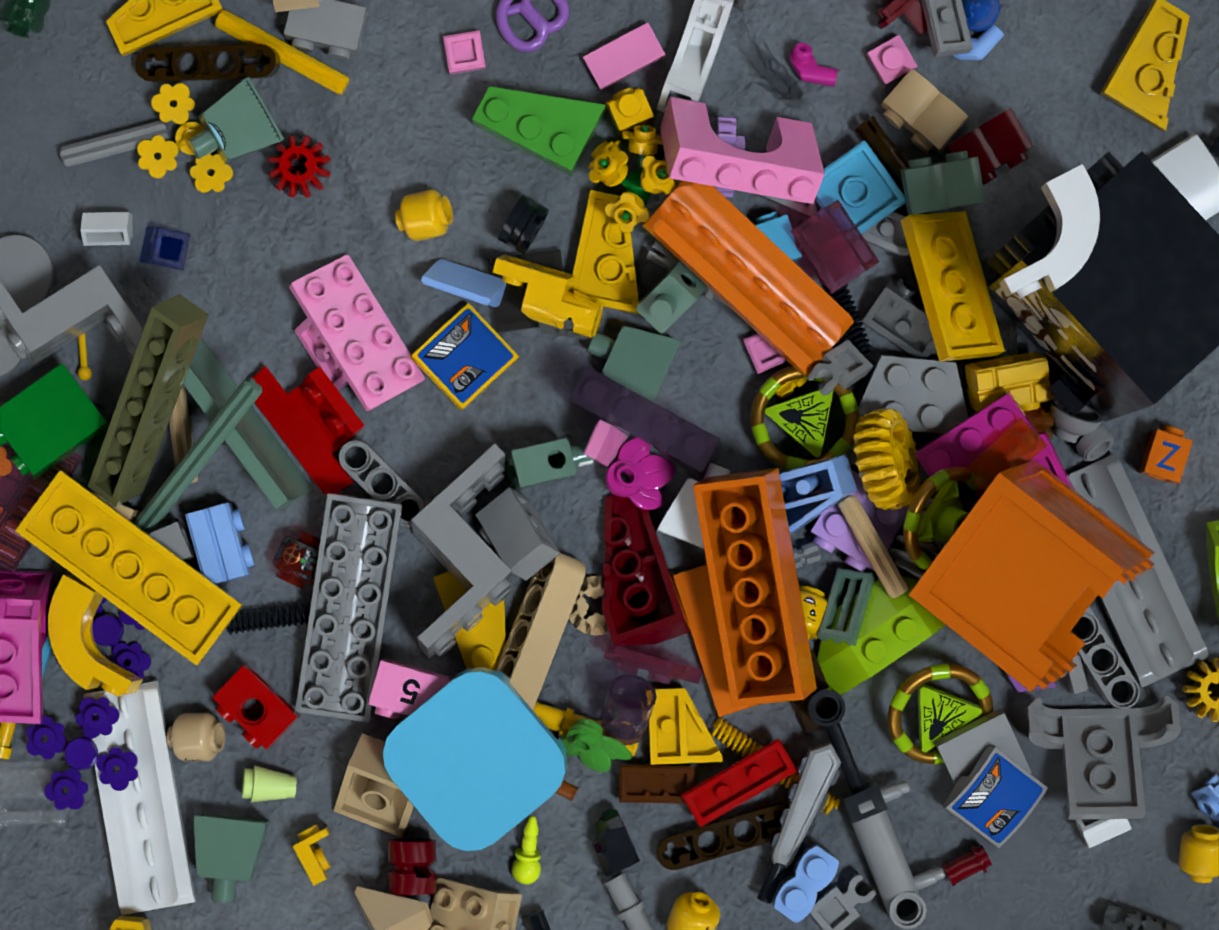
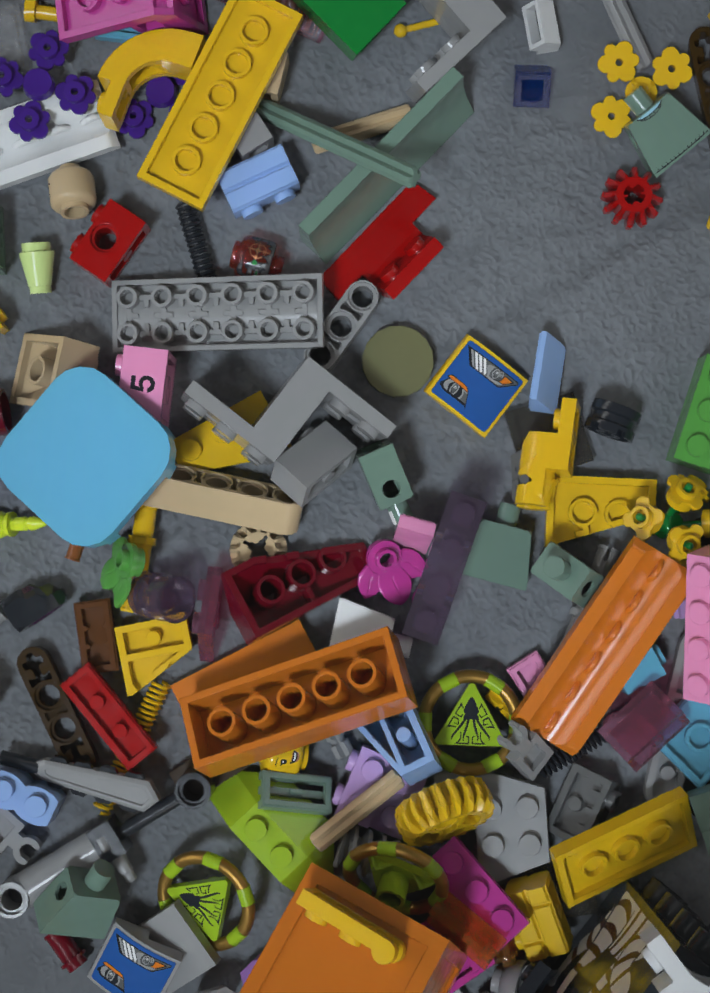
camera: 80 degrees right, 0 degrees up
(147, 399) = (386, 83): olive brick -> none
(352, 335) = (479, 275): bright pink bracket -> none
(424, 215) = (605, 324): yellow head -> none
(426, 432) = (397, 361): none -> olive tile
(919, 839) = (79, 902): none -> sand green torso
(972, 563) = (352, 926): none -> yellow plate

